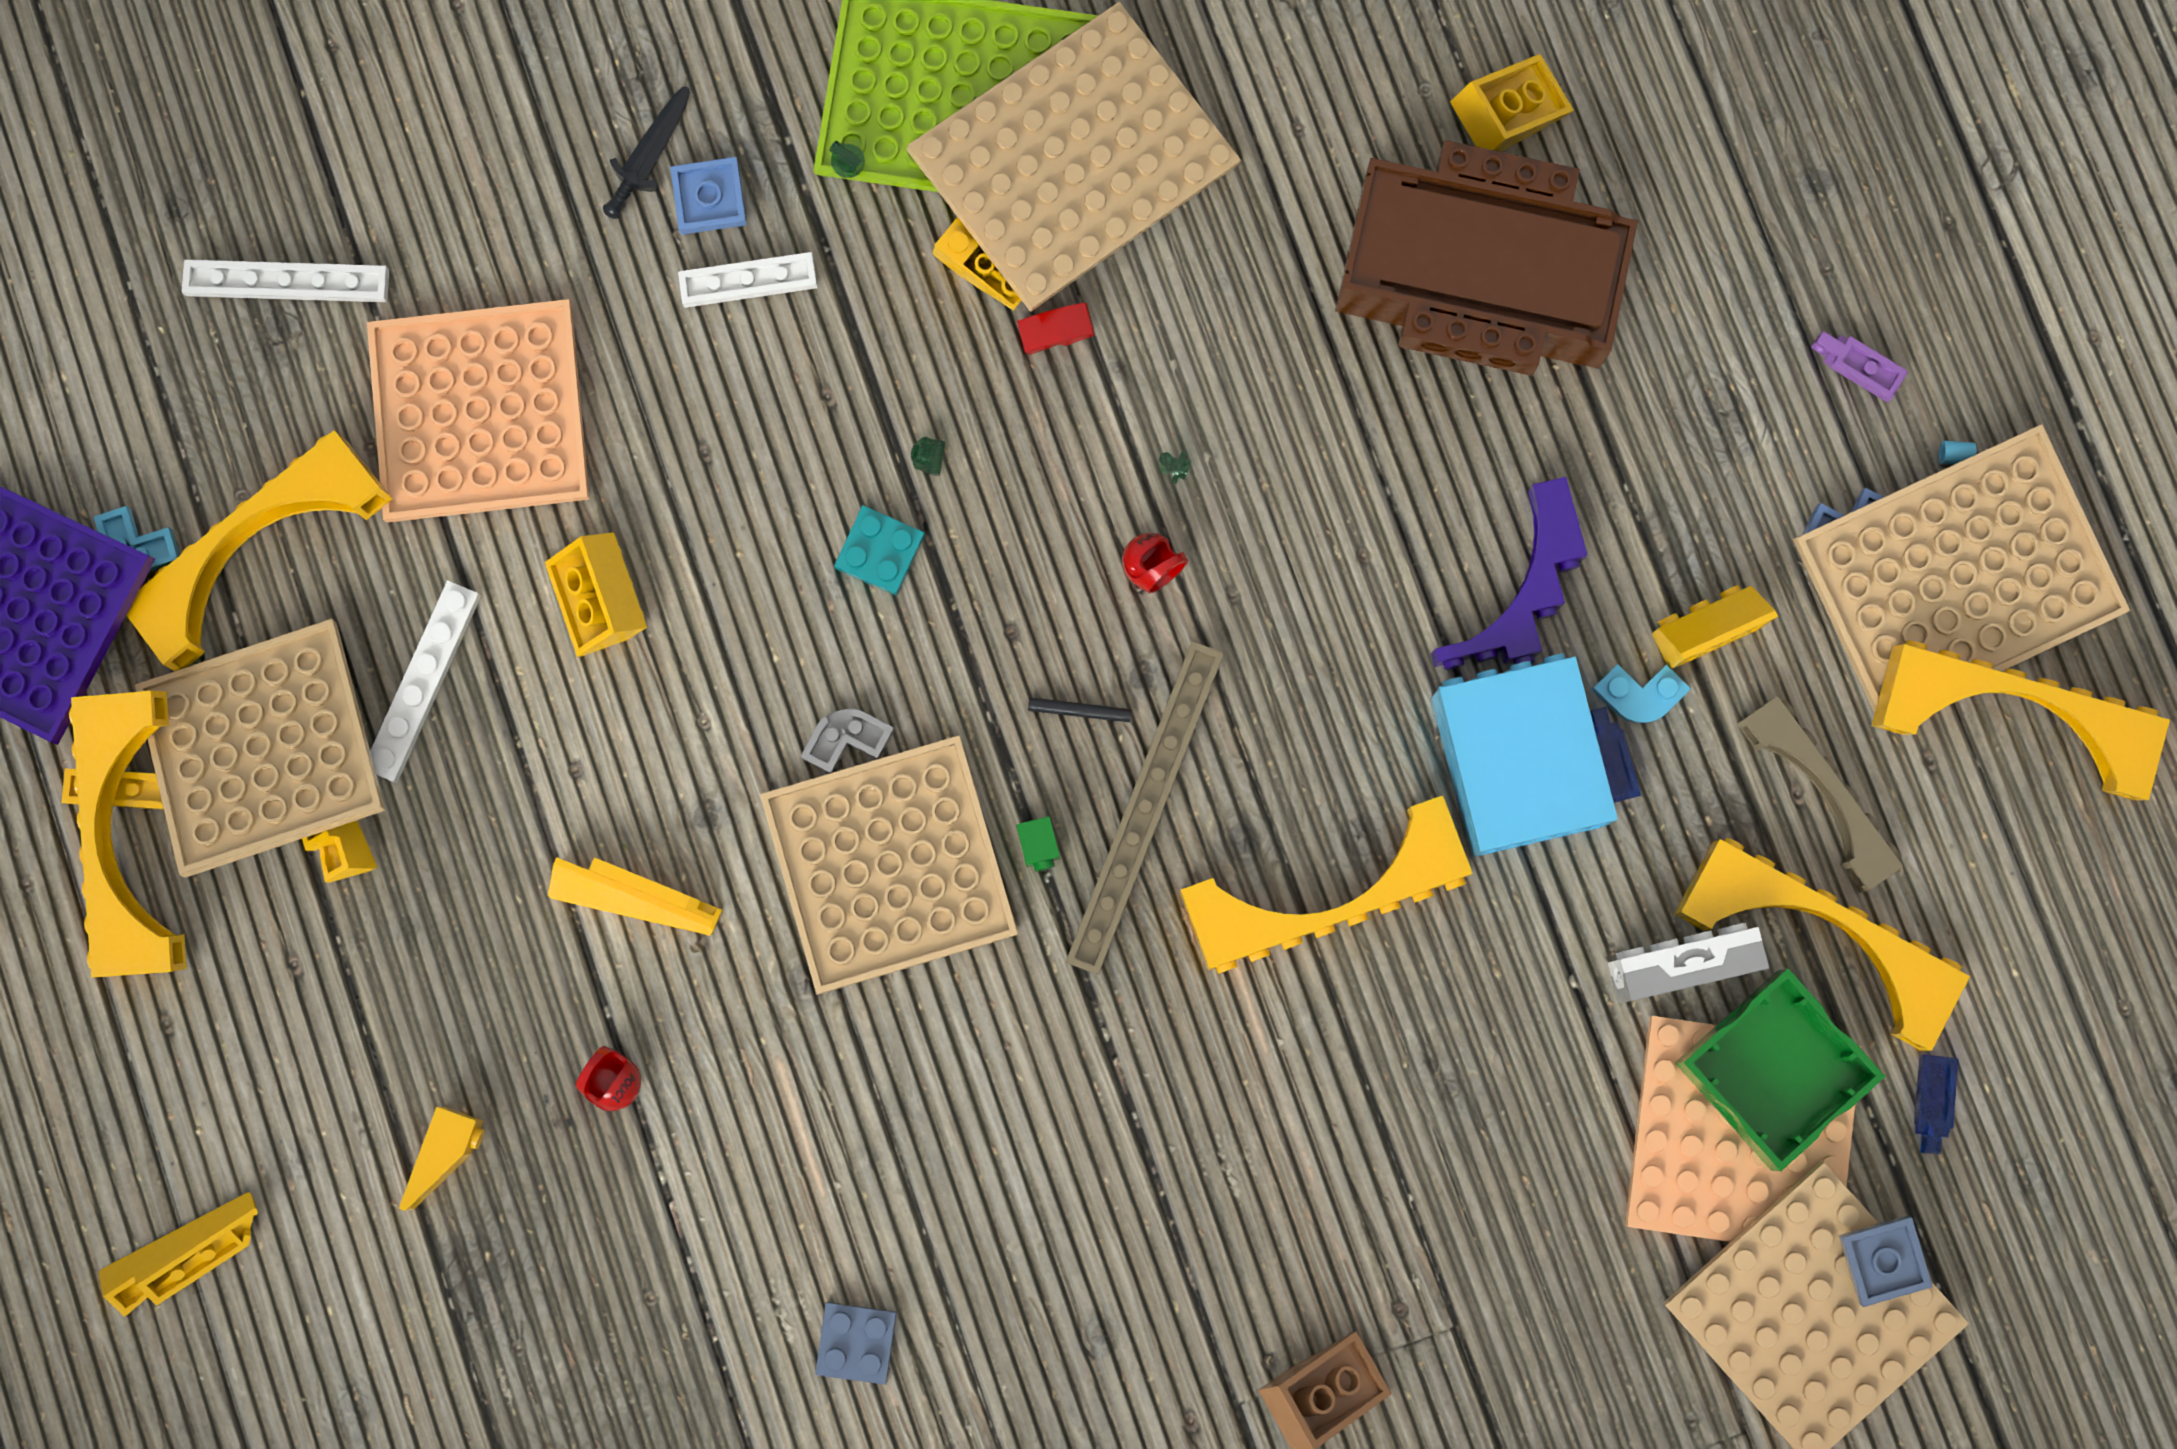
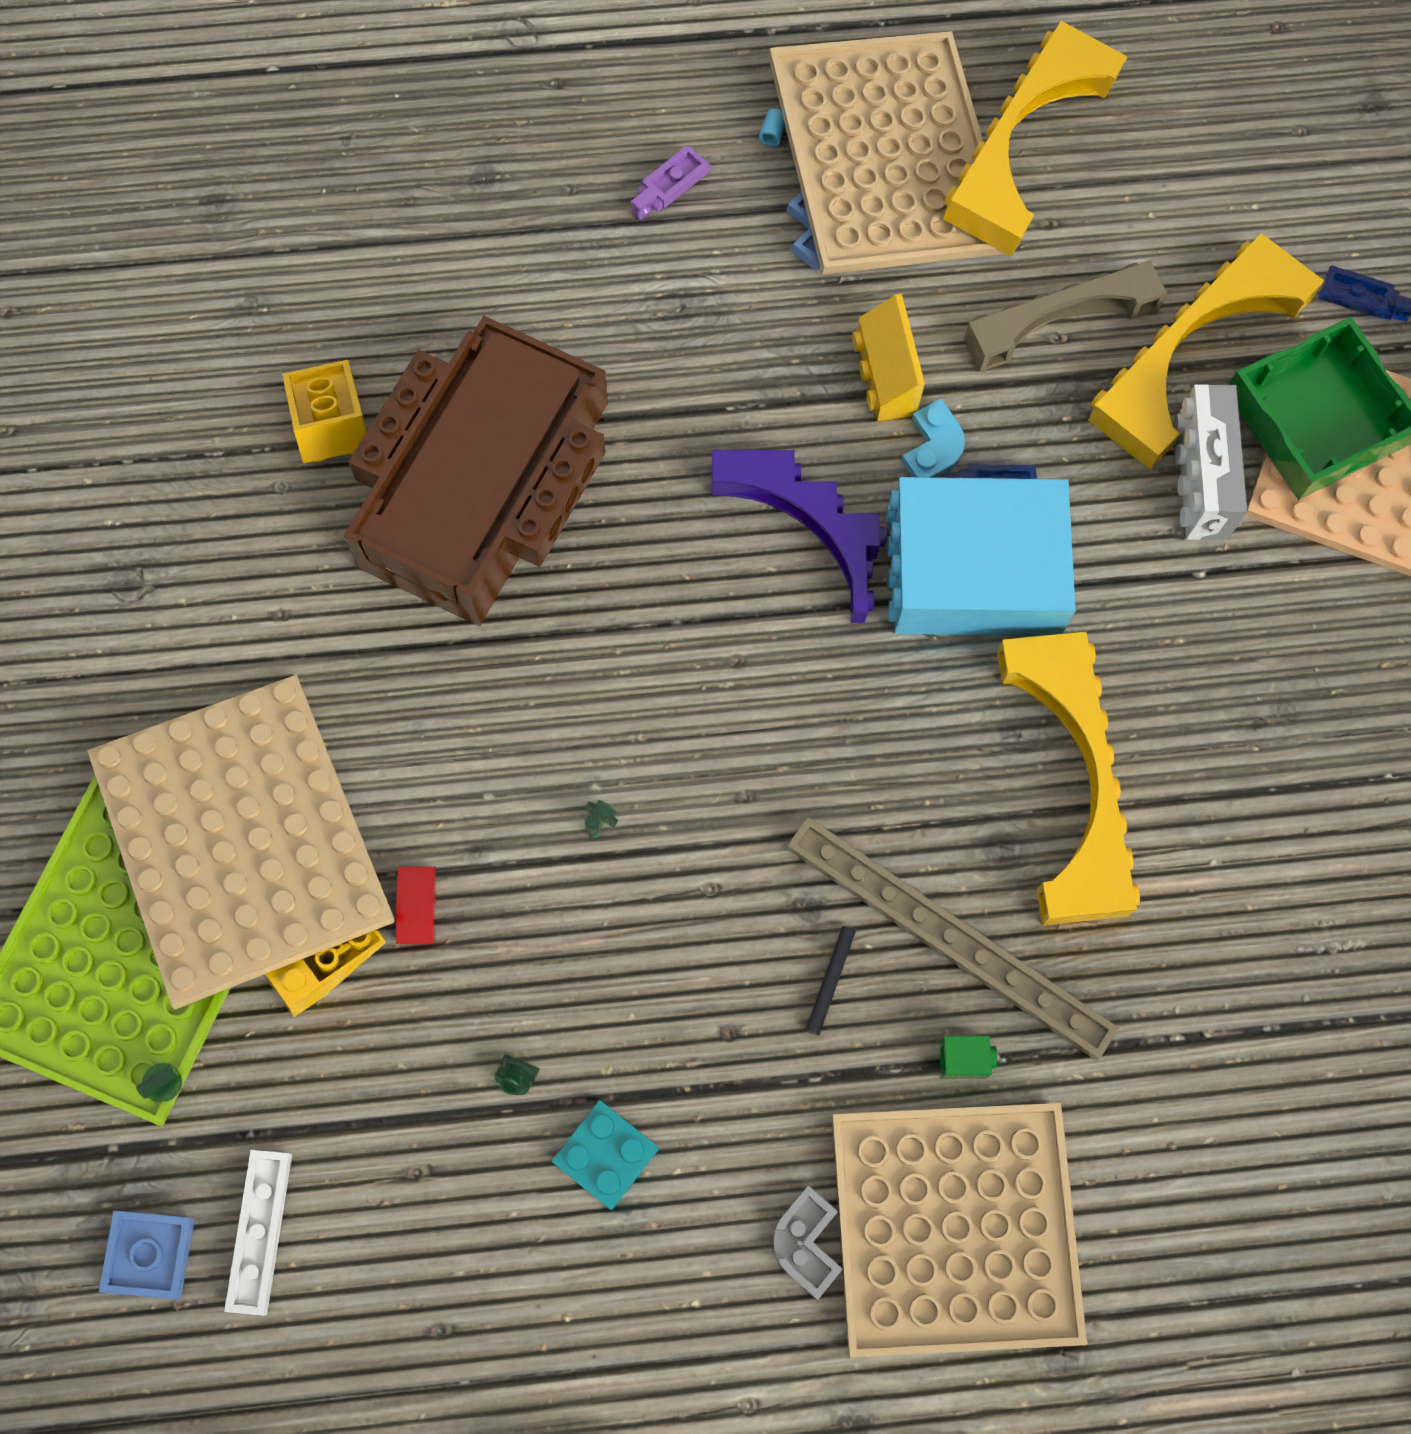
camera: 80 degrees left, 10 degrees down
(646, 154) = (74, 1319): black sword -> none
(1151, 562) = (694, 866): red helmet -> none

